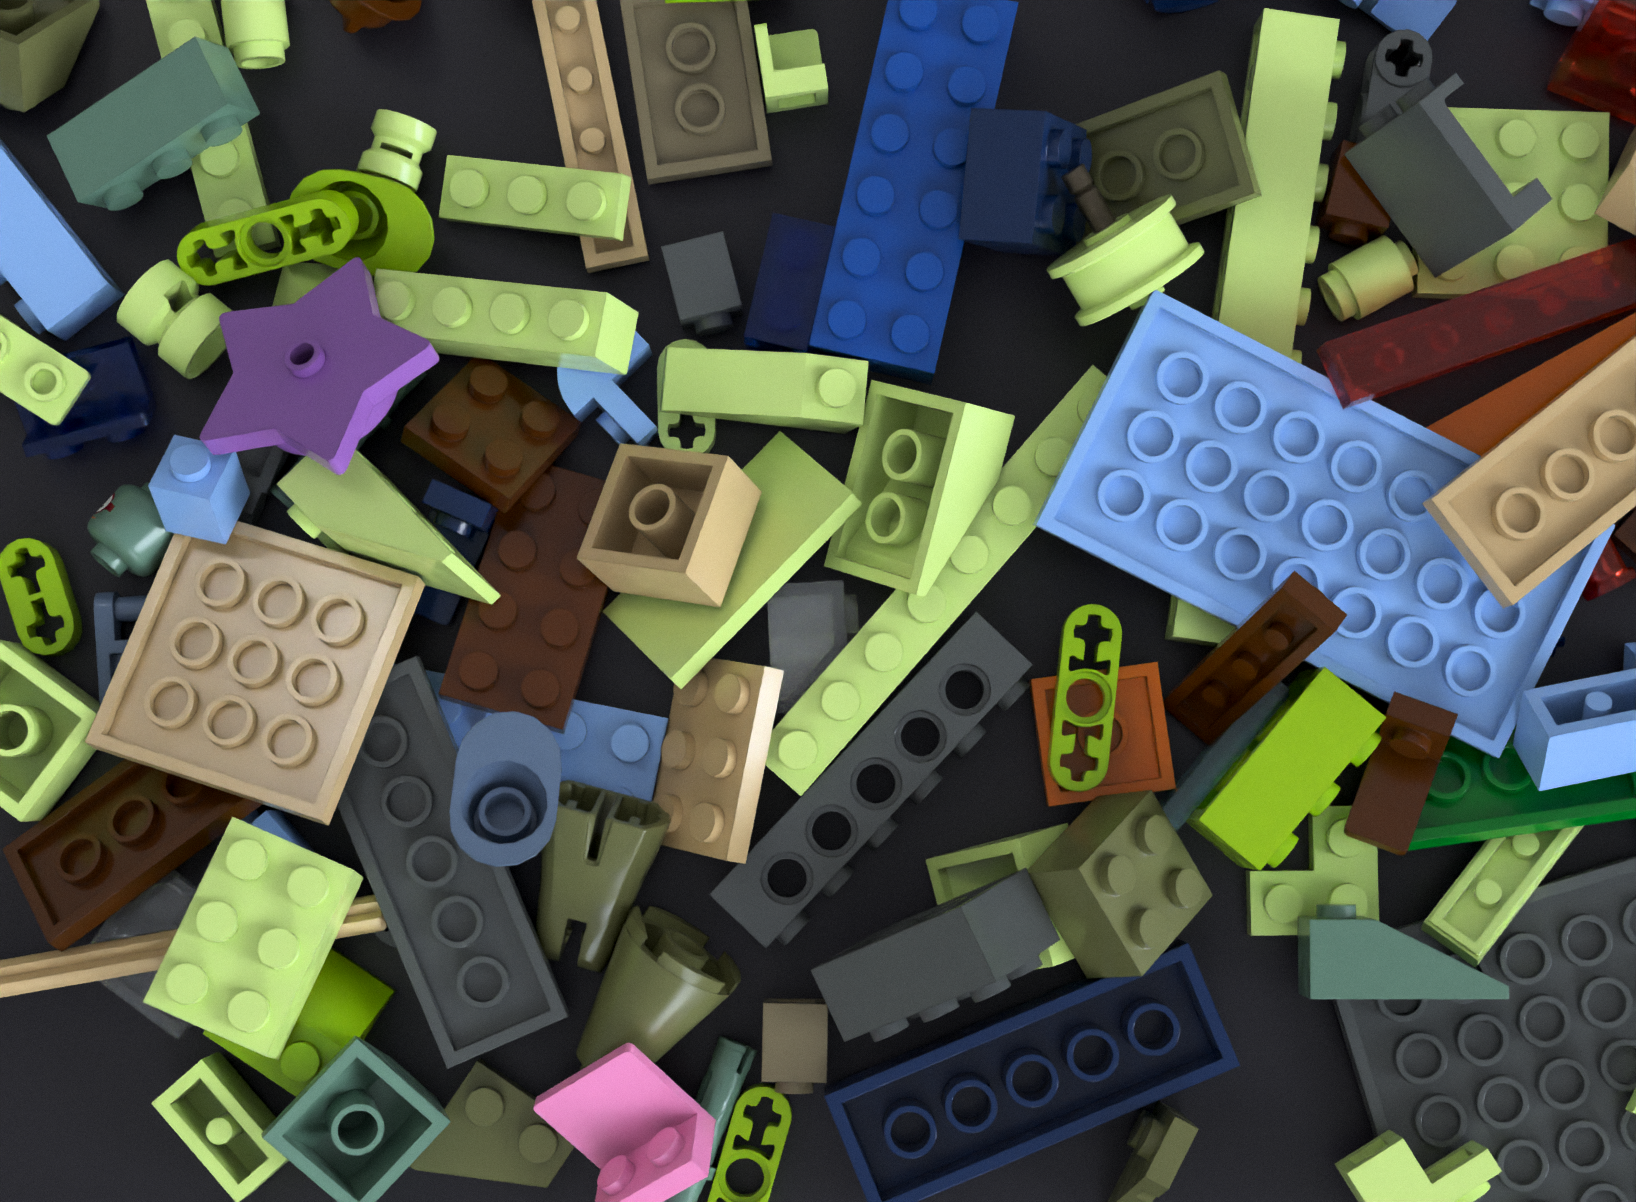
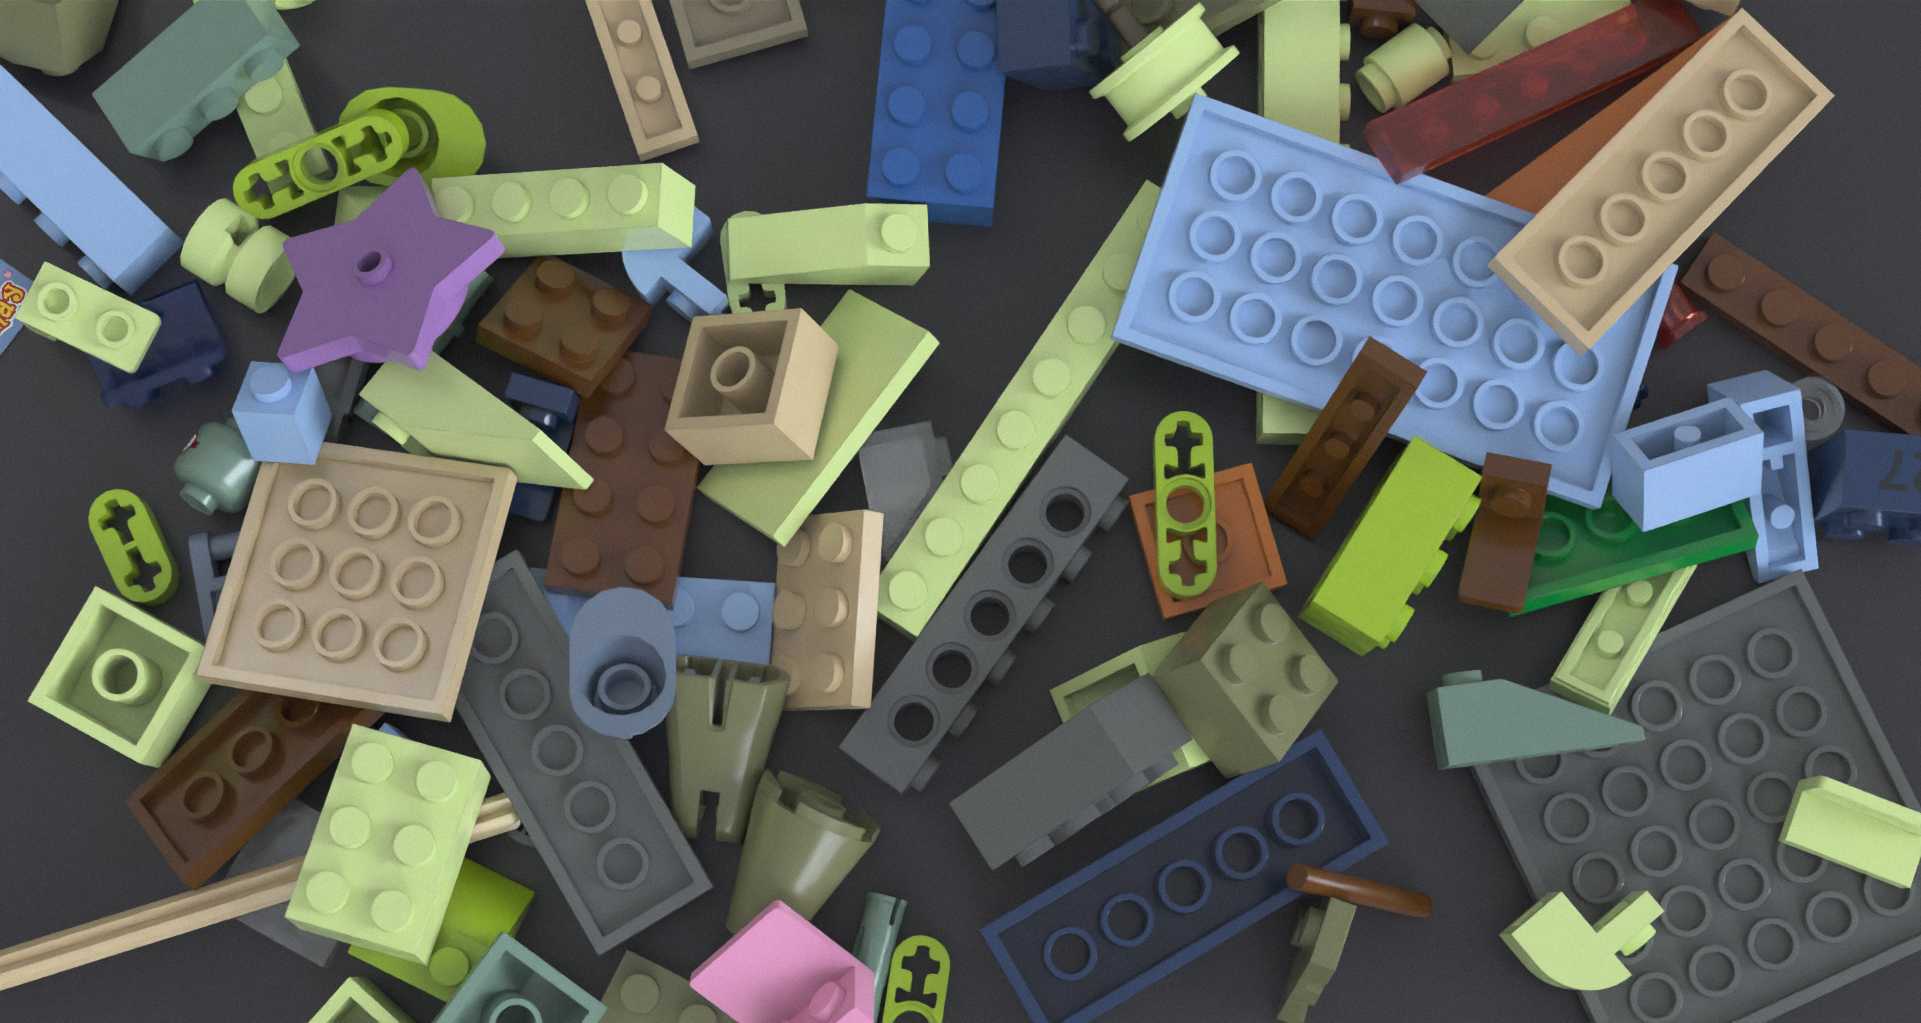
camera: 10 degrees left, 5 degrees down
(397, 148) = (439, 60): yellowish green wheel -> none
(535, 197) = (579, 93): yellowish green plate -> none
(703, 283) = (755, 155): dark grey brick -> none
(788, 285) = (839, 142): clear blue brick -> none
(794, 1044) = (943, 887): dark tan brick -> none
(921, 479) = (994, 310): yellowish green slope -> none
(1202, 1107) = (1358, 890): none -> reddish brown bar
(1219, 757) = (1330, 540): clear light blue tile -> none
(1338, 873) = (1460, 640): yellowish green plate -> none

